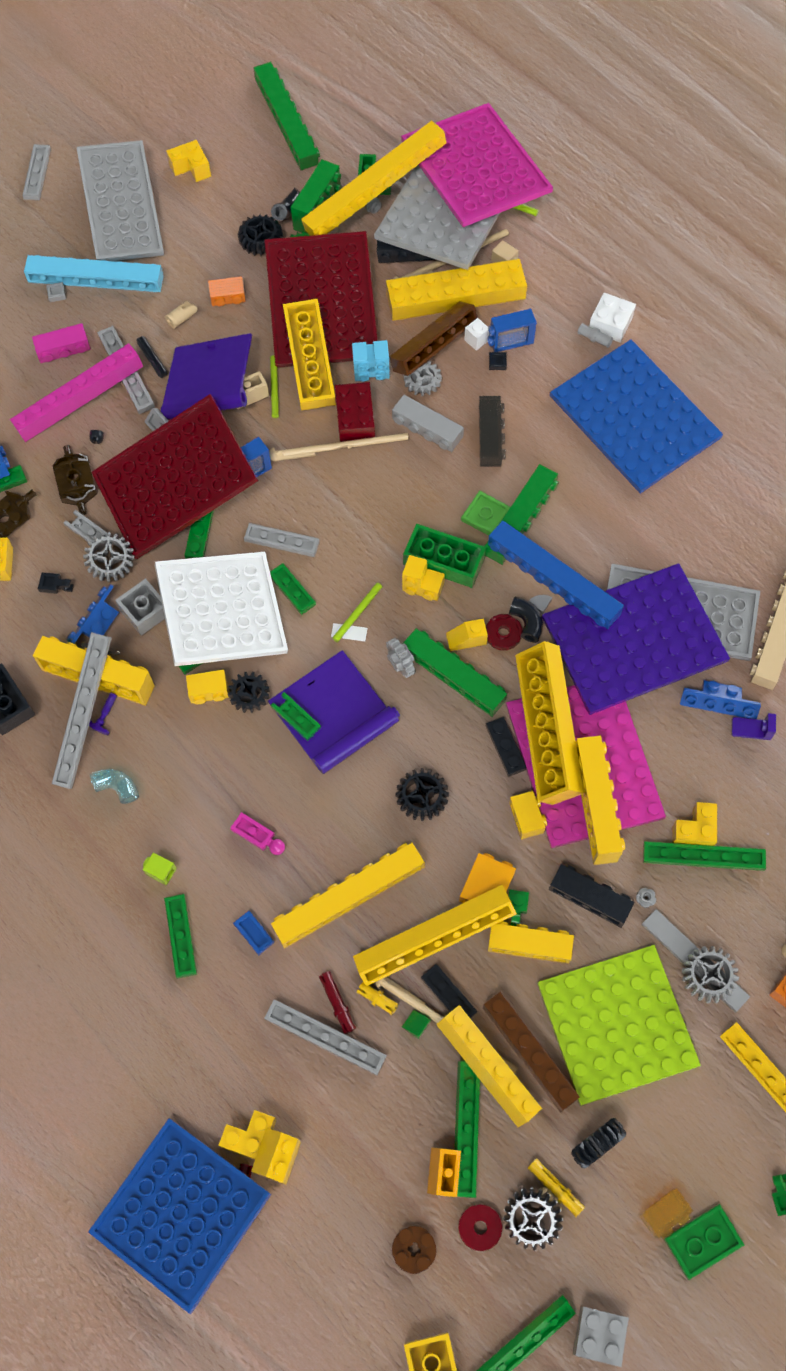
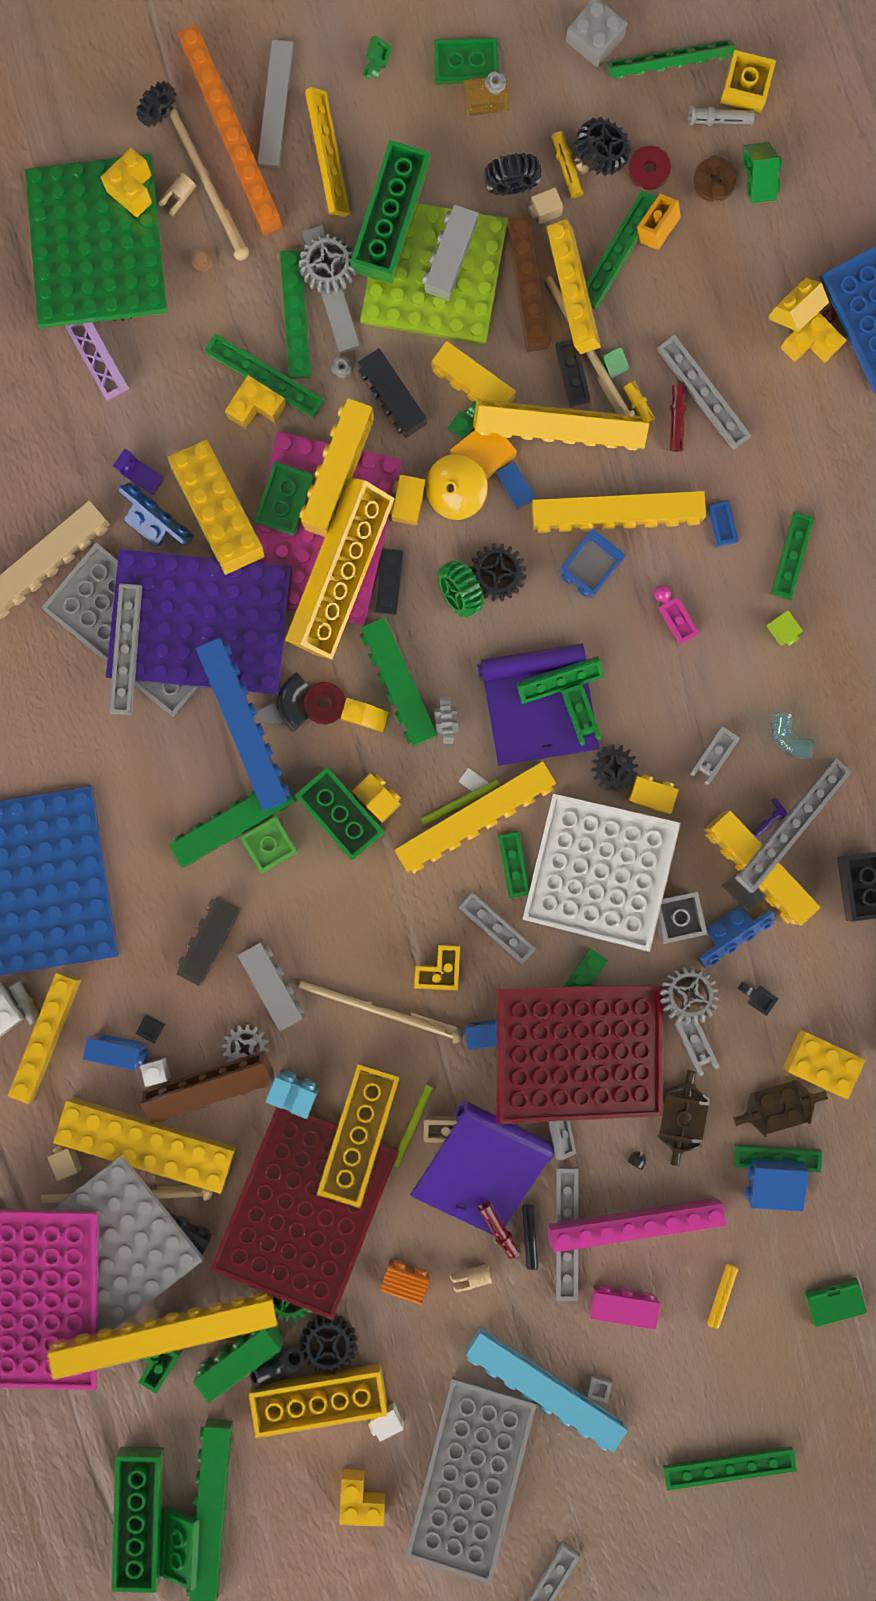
camera: 155 degrees left, 20 degrees up
(171, 345) = (503, 1237): none -> dark red pin
(171, 743) = (715, 754): none -> light grey hinge
(195, 209) = (387, 1426): none -> white brick
(250, 196) = (318, 1400): none -> yellow brick
(294, 88) = (180, 1548): none -> green tile
(307, 484) = (444, 974): none -> yellow brick
(326, 734) = (560, 679): none -> green tile
(331, 91) = (137, 1519): none -> green brick
(339, 605) = (474, 817): none -> yellow brick
(348, 839) = (591, 564): none -> window
(354, 411) = (342, 1041): dark red brick -> none
(373, 1276) = (762, 167): none -> green brick
(444, 760) = (460, 588): none -> green gear
(445, 874) = (515, 485): none -> blue tile
(449, 1310) = (714, 116): none -> light grey pin
(493, 844) = (468, 482): none -> yellow dish
(553, 1134) = (546, 206): none -> tan brick
(567, 321) = (44, 1037): none -> yellow brick
(611, 1039) = (451, 252): none -> light grey brick
(627, 763) = (284, 498): none -> green tile
(657, 1222) = (498, 87): none -> light grey plate
(676, 586) = (125, 649): none -> light grey tile
(676, 725) = (216, 507): none -> yellow brick
(684, 1045) = (390, 211): none -> green brick
(711, 922) = (295, 315): none -> green plate

